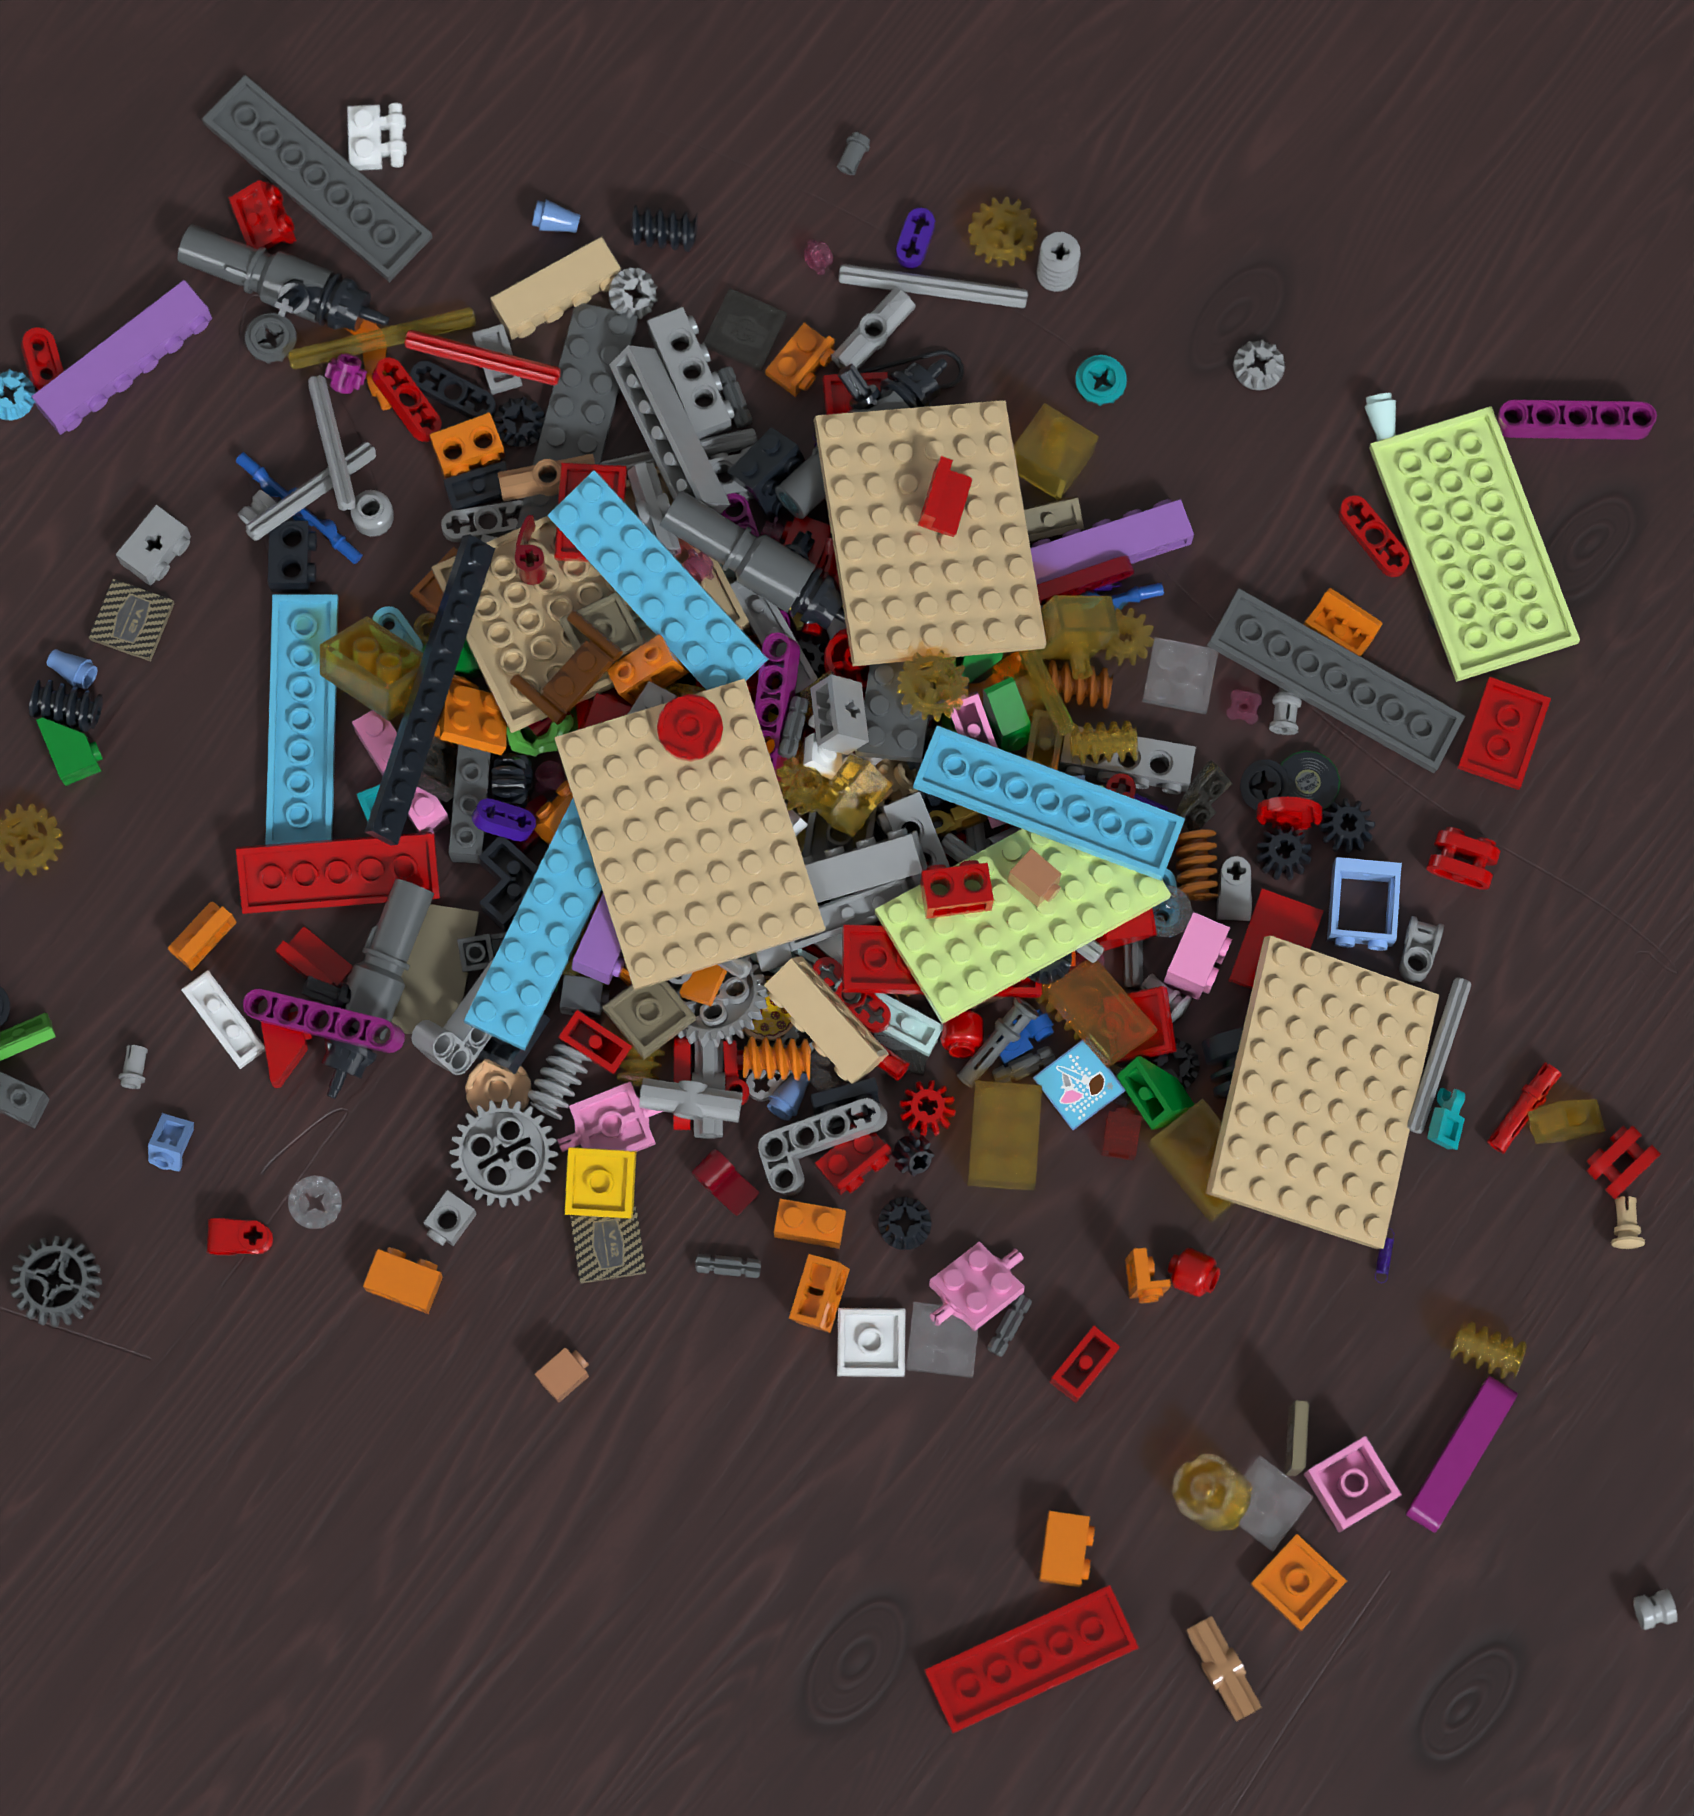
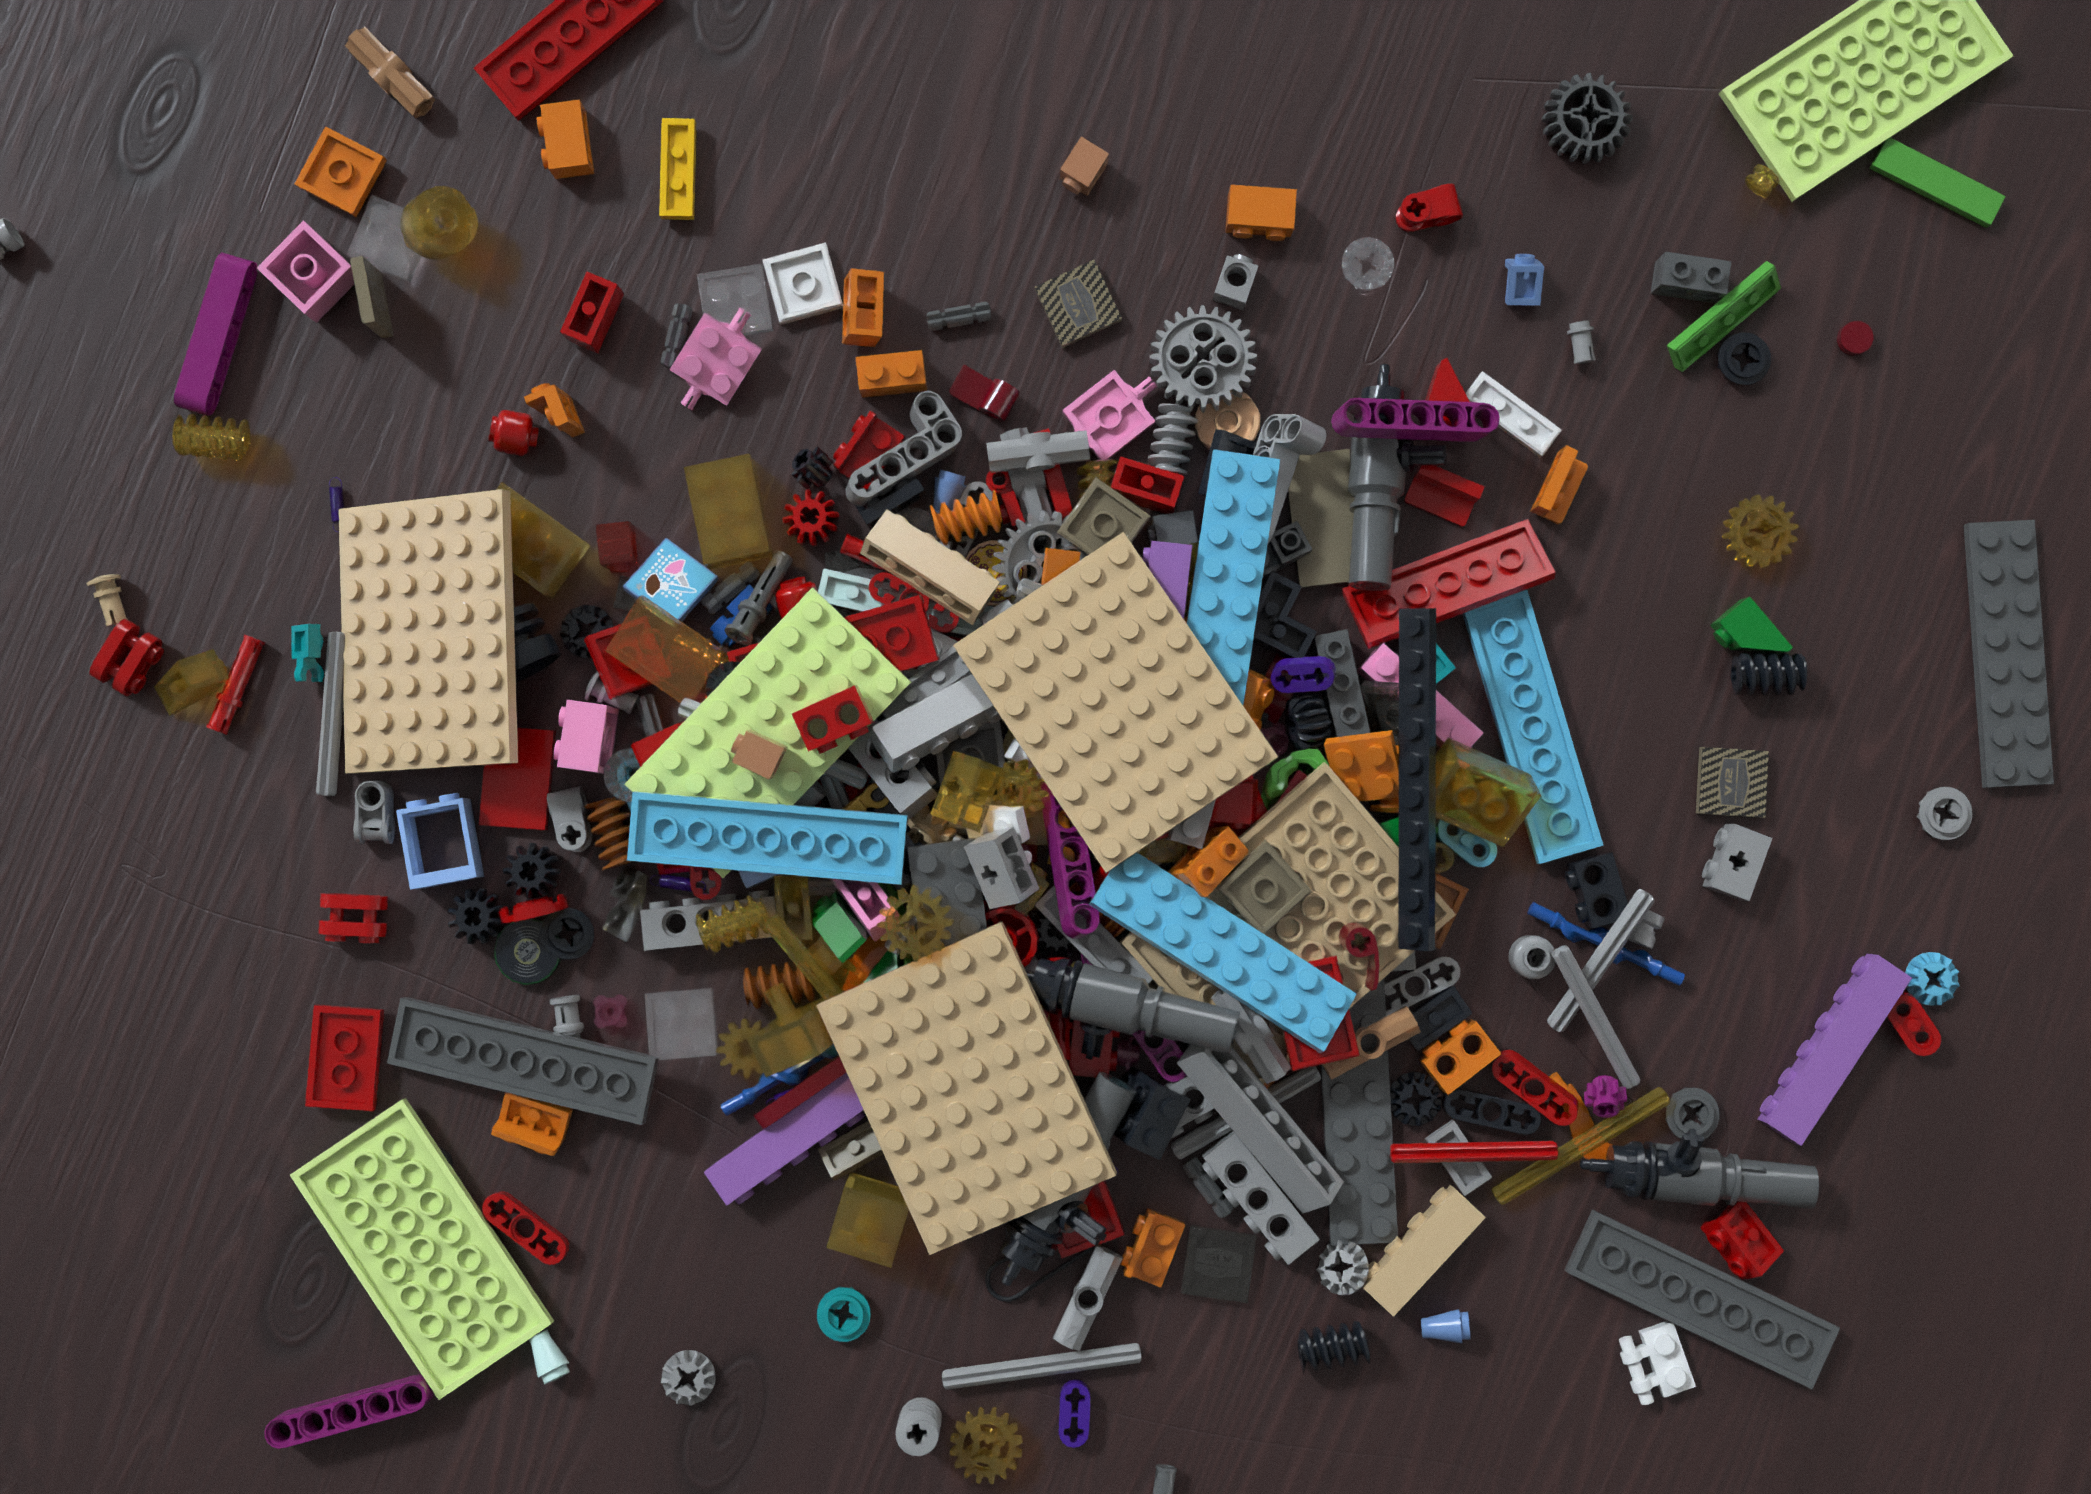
camera: 165 degrees right, 10 degrees up
(74, 669) = (1773, 715): medium blue cone -> none
(575, 676) = (1276, 832): reddish brown plate -> none
(600, 1182) = (1102, 352): yellow plate -> none
(690, 727) = (1145, 802): red tile -> none
(699, 565) = (1188, 985): clear pink plate -> none
(793, 727) = (1044, 843): dark grey axle -> none
(818, 256) = (1167, 1363): clear pink plate -> none
(893, 1233) = (816, 411): black gear -> none
(945, 499) = (958, 1124): red panel -> none
(962, 1489) = (677, 169): none -> yellow plate
(1154, 1092) = (592, 590): green slope -> none

